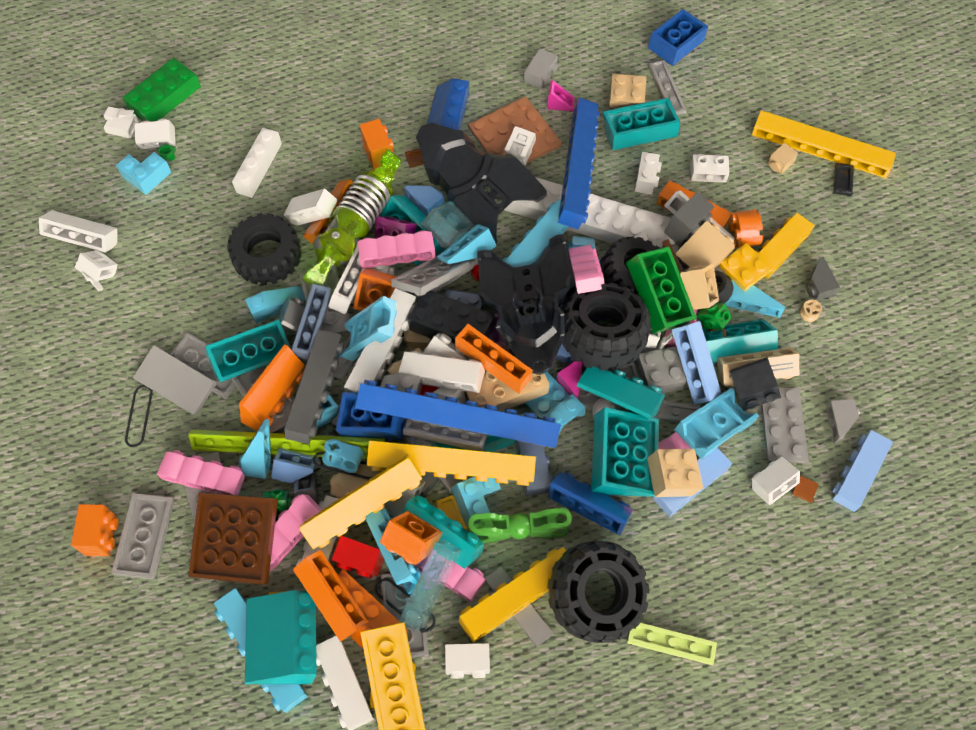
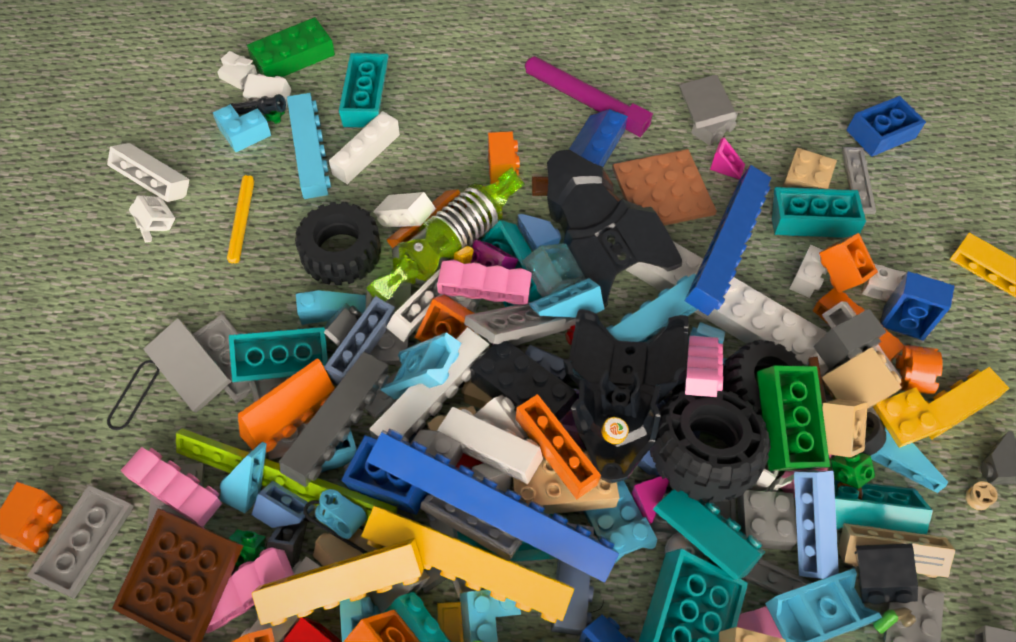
camera: 15 degrees right, 5 degrees down
(157, 146) = (270, 102): none -> black pin
(172, 249) = (240, 219): none -> yellow axle
(207, 173) = (307, 146): none -> medium azure brick
(239, 111) = (362, 88): none -> teal slope
(372, 232) = (464, 255): none -> yellow tile
(477, 79) = (638, 118): none -> magenta brick
(520, 144) = (667, 200): white piece -> none
(530, 51) = (707, 101): none -> light grey tile
(533, 335) = (614, 430): none -> tile
(674, 159) = (848, 263): none -> orange brick
(733, 179) = (917, 305): none -> blue brick
(766, 413) = (892, 616): none -> arm
(782, 158) = (984, 296): tan brick -> none

